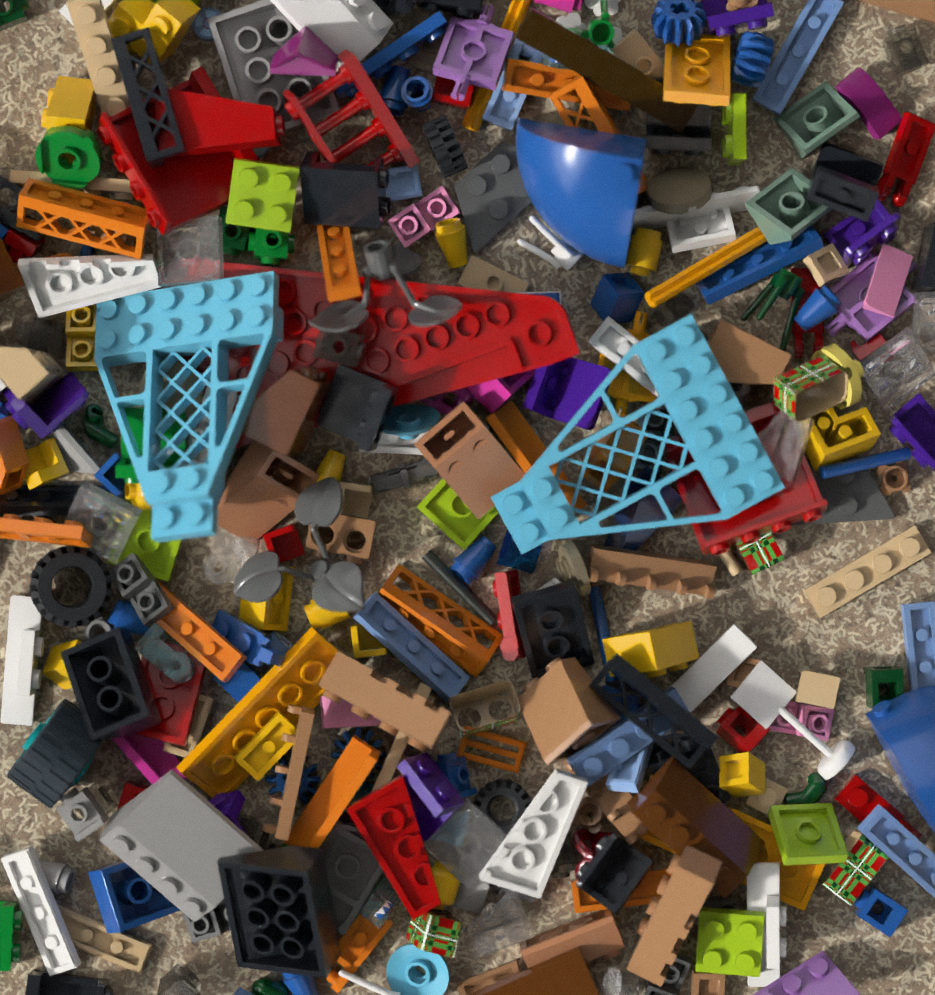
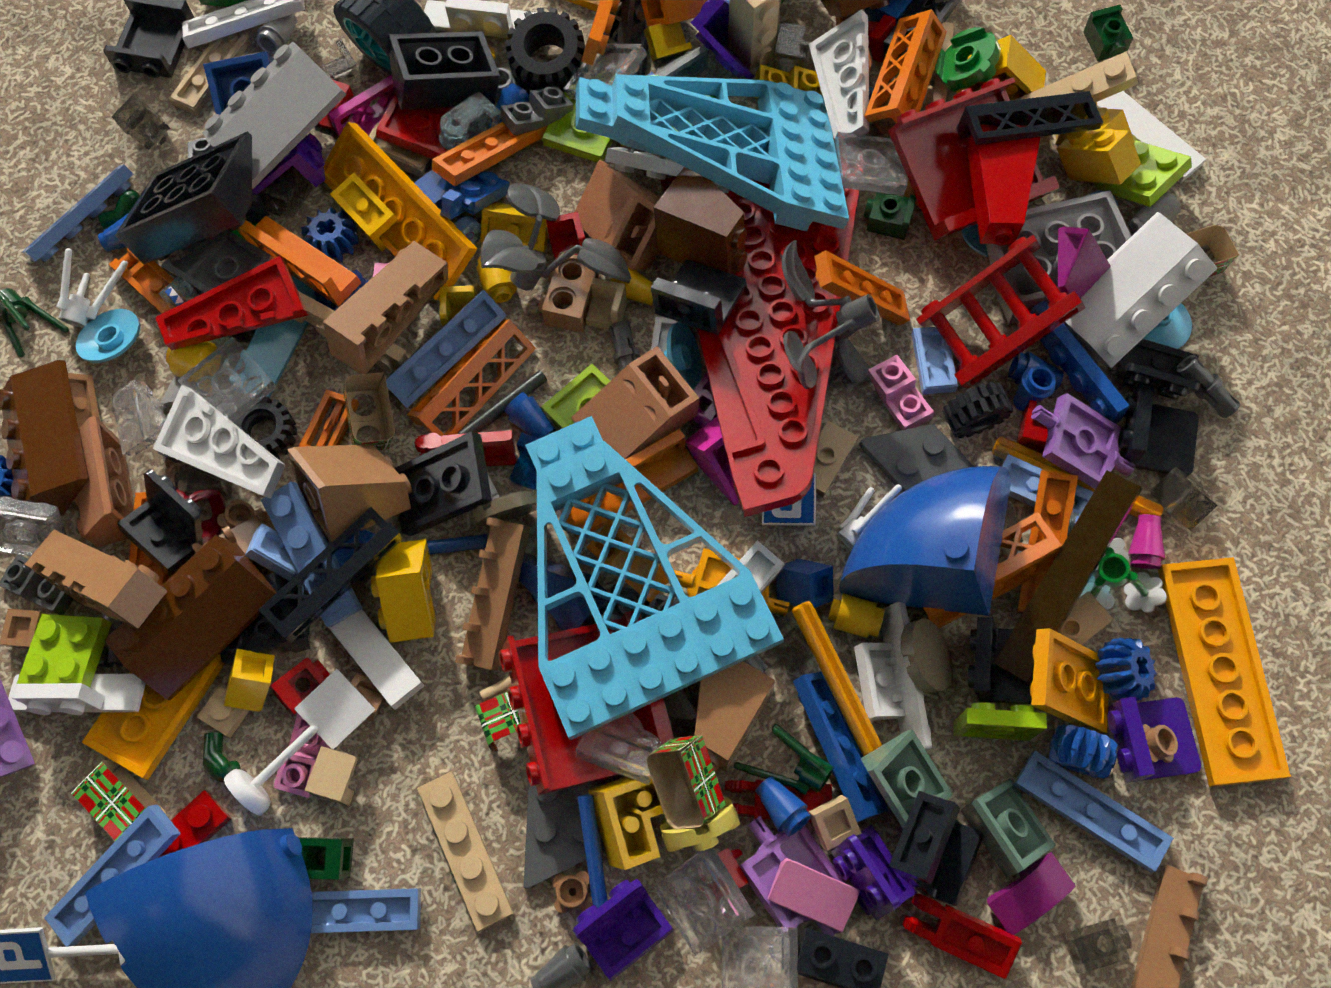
camera: 95 degrees right, 20 degrees down
(93, 813) = (325, 41): light grey brick -> none
(232, 553) = (565, 192): clear plate -> none
(262, 194) = (928, 222): lime plate -> none
(268, 254) = (879, 243): green brick -> none
(294, 772) = (331, 220): medium nougat hinge -> none
(344, 192) = (929, 306): black panel -> none
(352, 354) = (765, 280): clear smoke brick -> none
(430, 793) = (288, 342): dark purple bracket -> none
(435, 933) = (137, 343): piece -> none
(452, 240) = (872, 417): yellow cone -> none
(456, 772) = (302, 377): blue brick -> none
(563, 388) = (711, 507): dark purple bracket -> none
(807, 834) = (163, 748): lime plate -> none
(888, 918) = (49, 833): blue brick -> none

